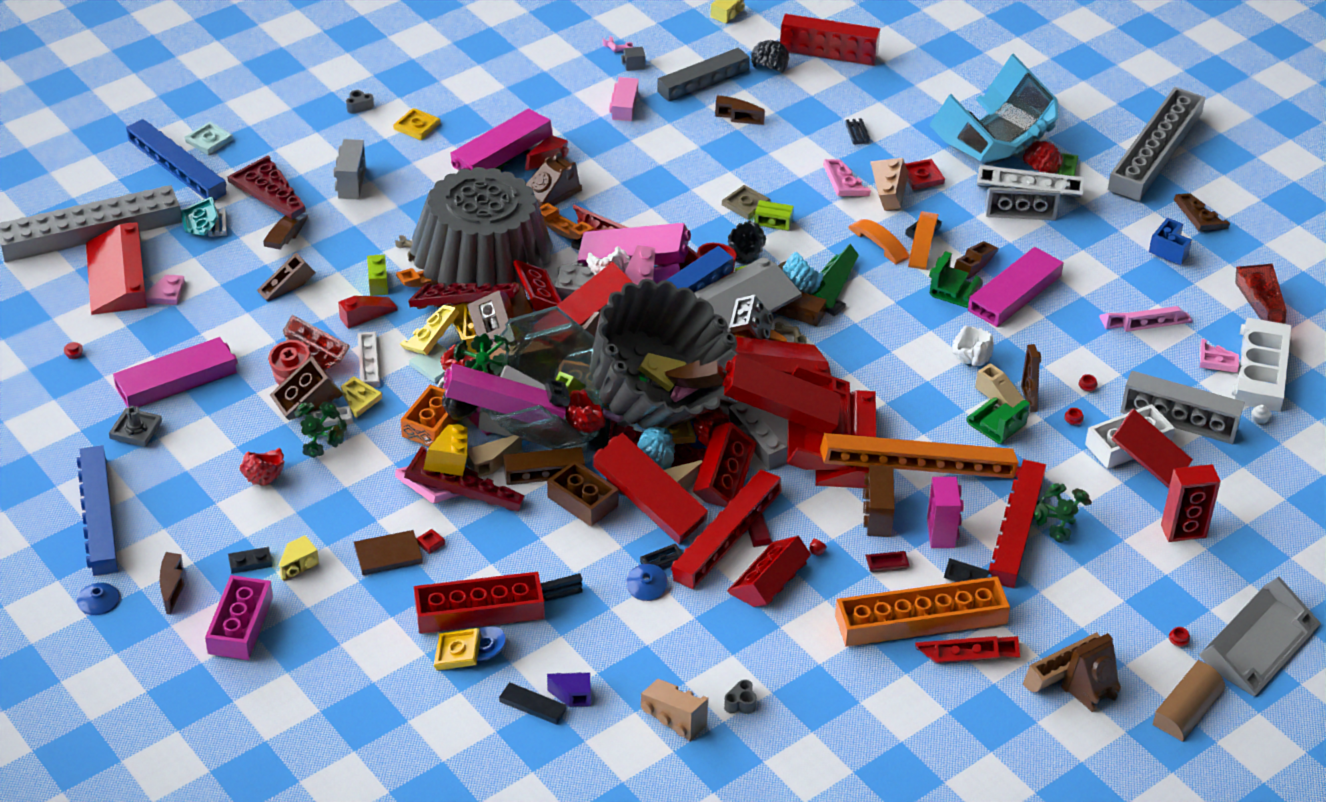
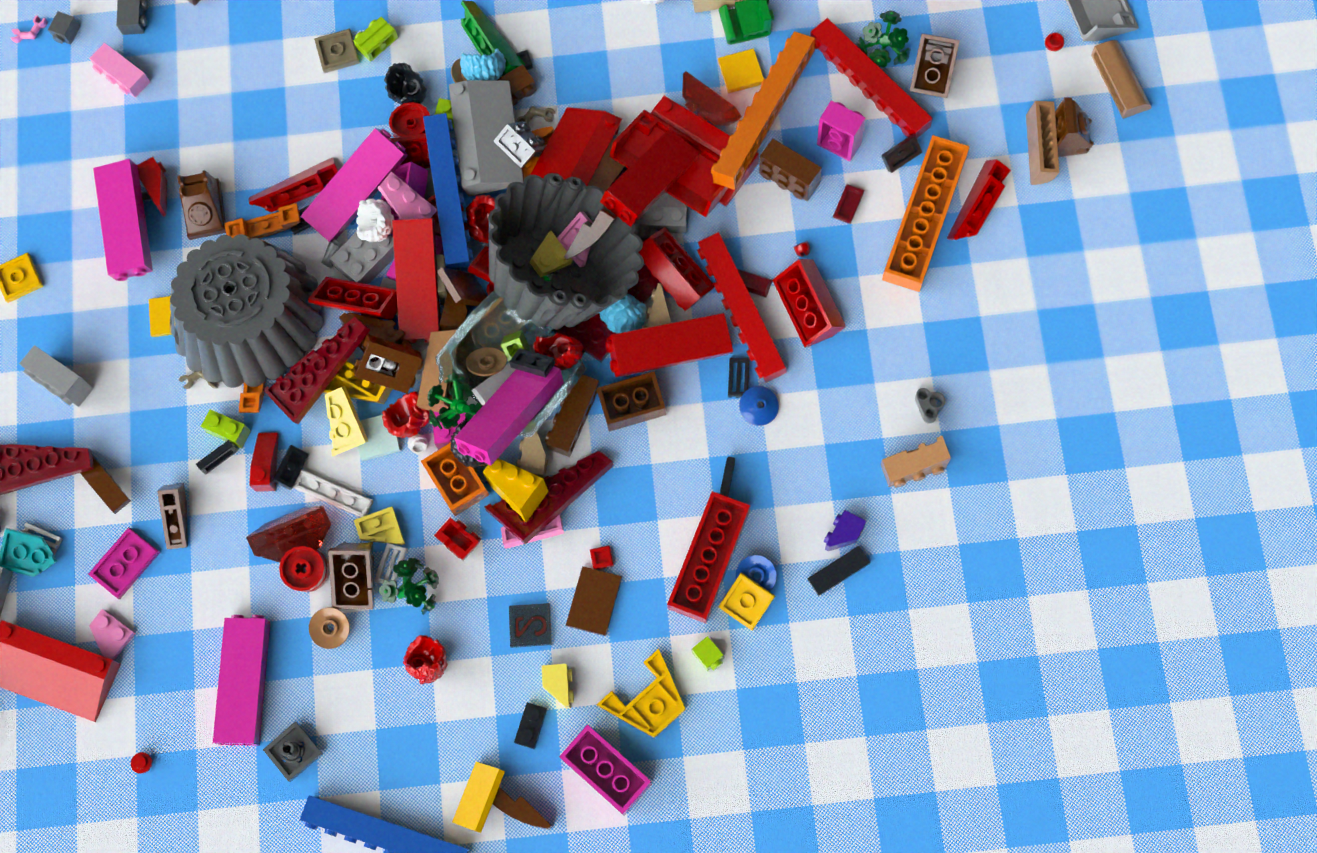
camera: 50 degrees left, 30 degrees up
(164, 547) = (478, 797): none -> yellow tile
(229, 273) = (124, 563): none -> dark pink tile
(252, 401) = (319, 628): none -> medium nougat dish
(323, 630) = (655, 706): none -> yellow wing
(338, 522) = (530, 625): none -> clear smoke tile
(350, 281) = (216, 457): none -> black tile
(372, 323) = (290, 467): none -> black plate
(382, 441) = (456, 539): none -> red cylinder
(390, 642) = (708, 654): none -> lime brick
(537, 370) = (486, 361): none -> medium nougat dish
(890, 414) = (707, 102): none -> clear red wedge
(949, 432) = (740, 70): none -> yellow tile
(1070, 553) = (934, 65): none -> reddish brown piece

